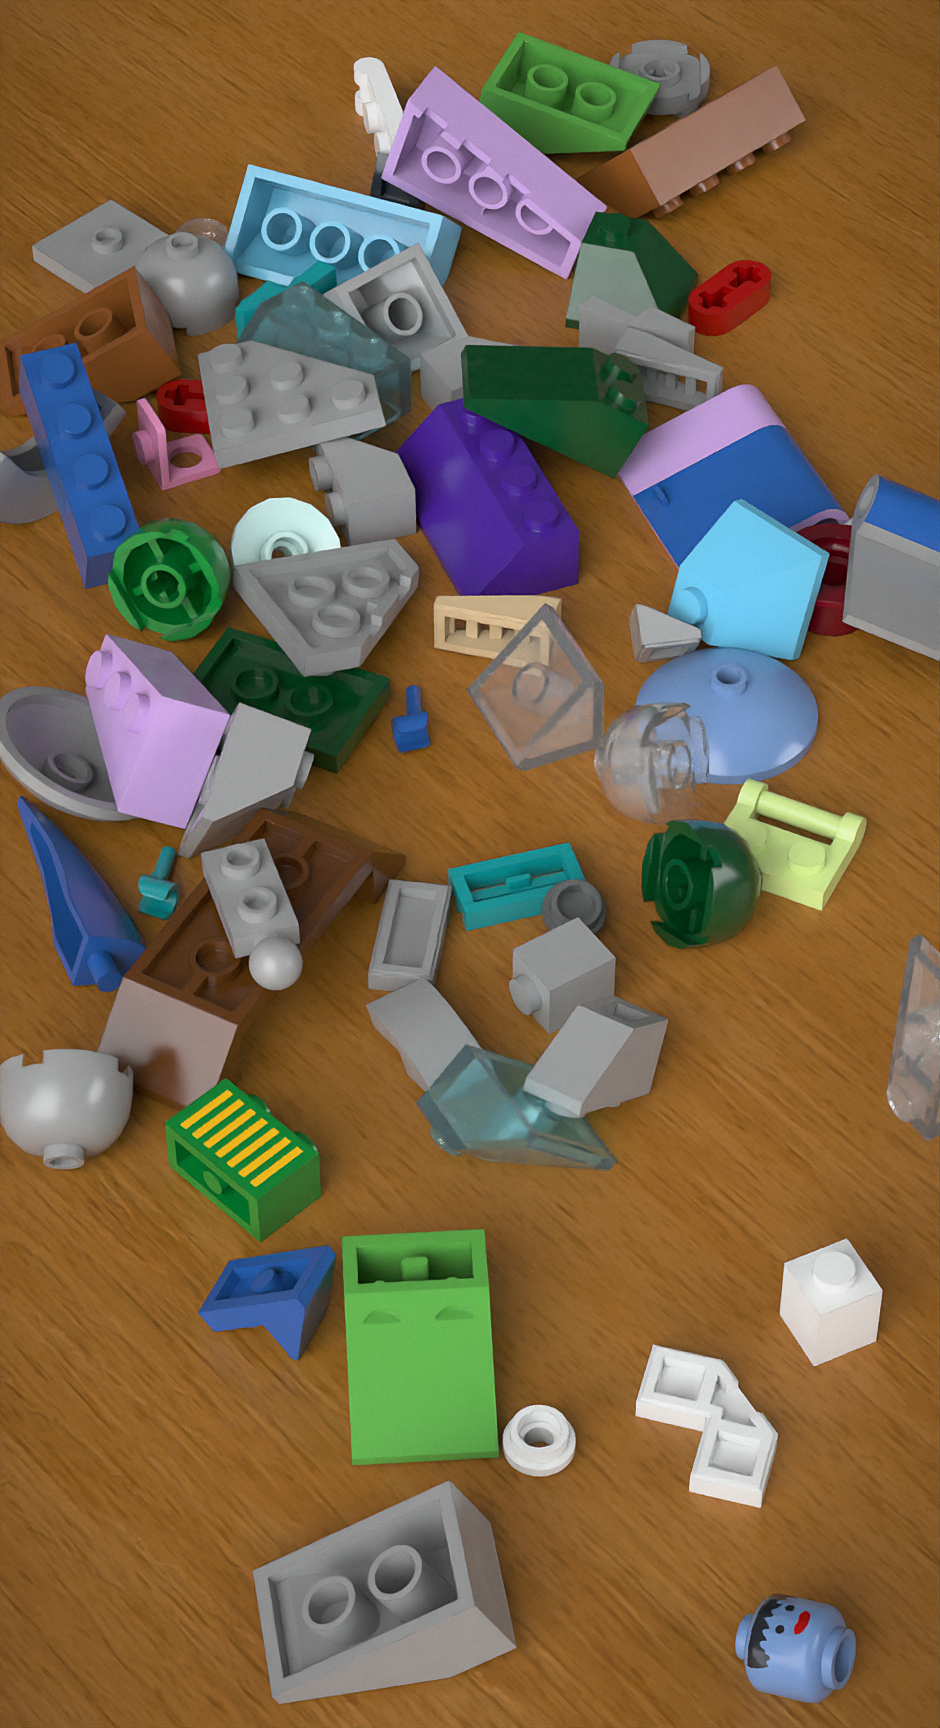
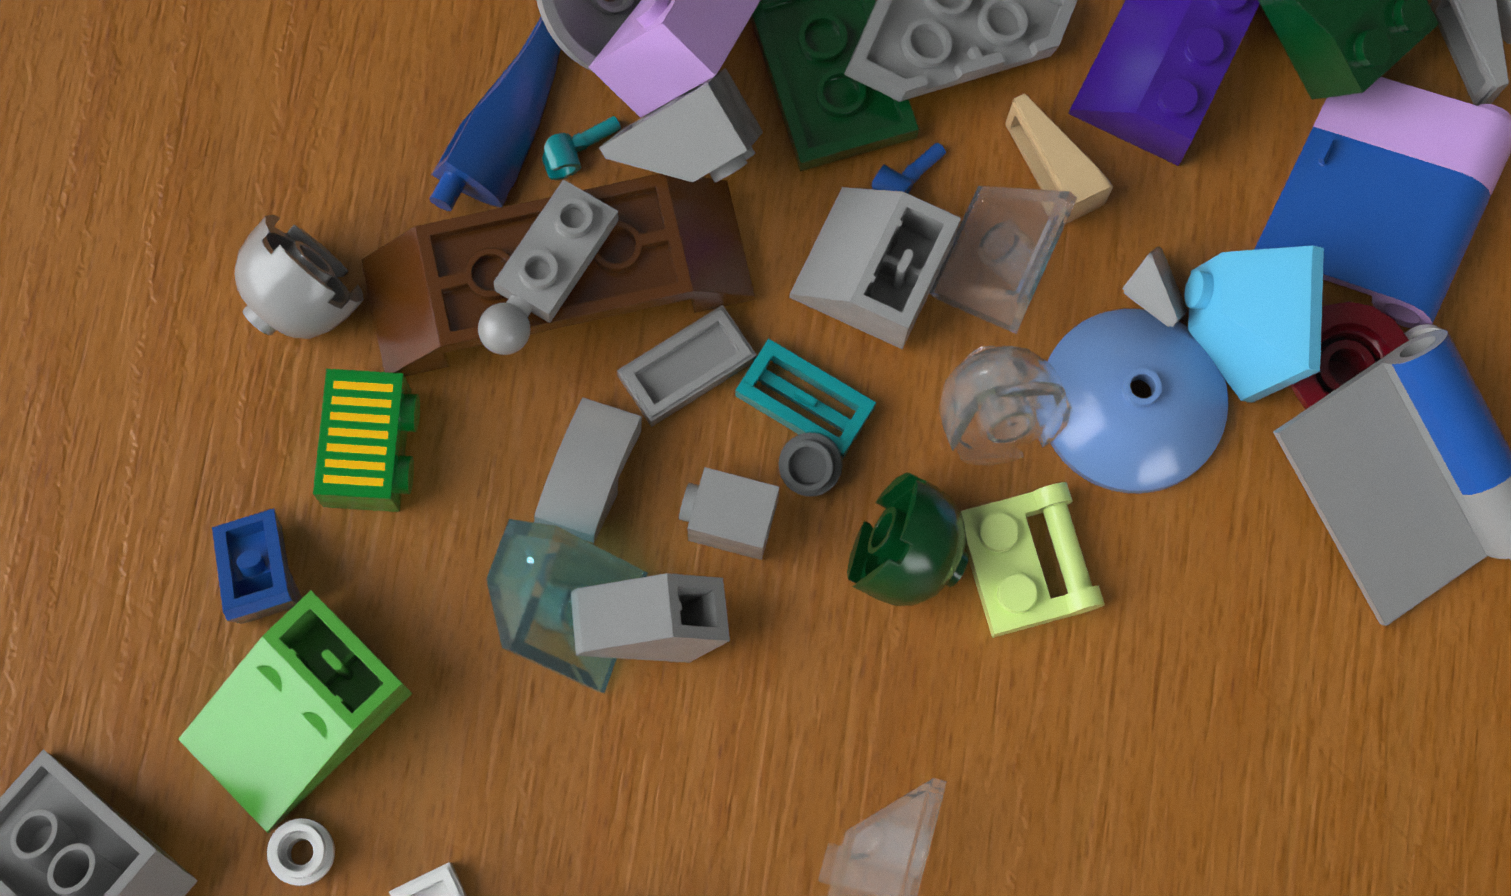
camera: 45 degrees right, 30 degrees up
(465, 761) = (876, 261): none -> light grey slope

